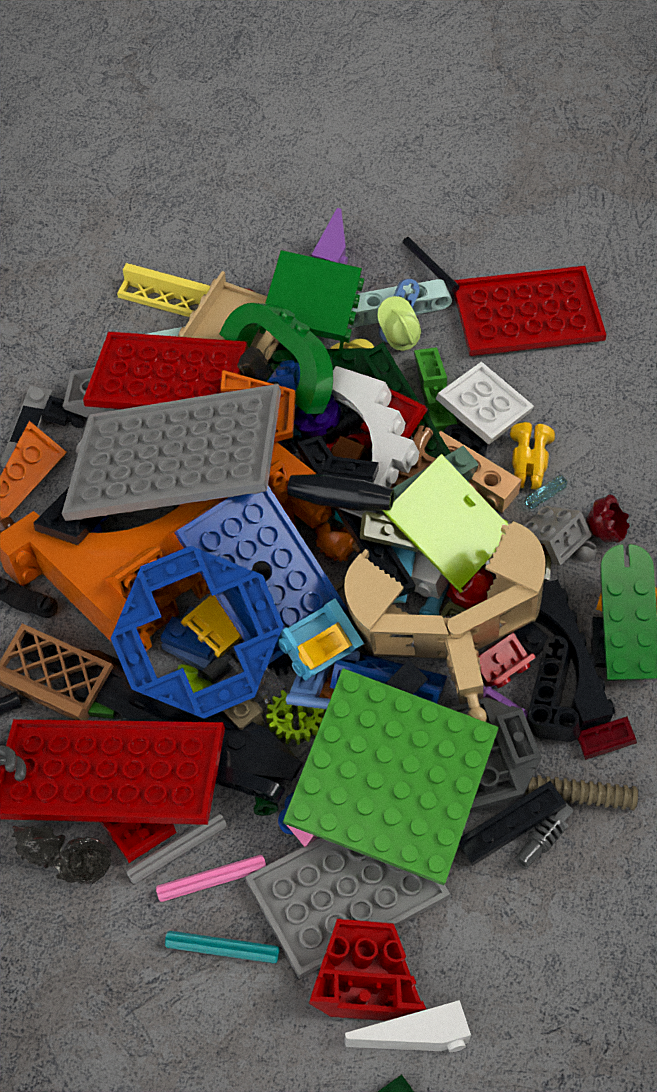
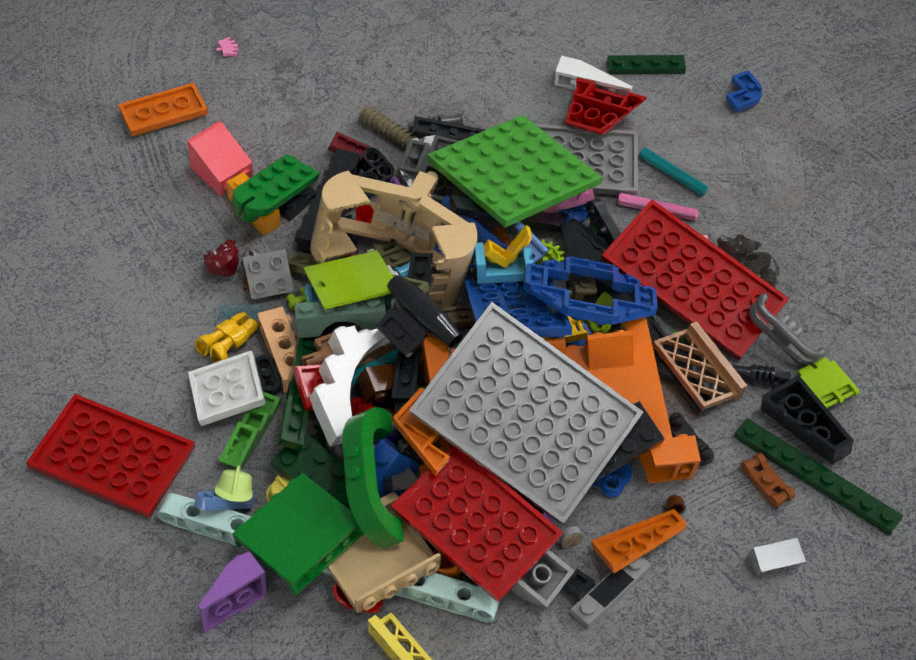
camera: 150 degrees left, 5 degrees down
(427, 261) = (151, 543): black bar -> none

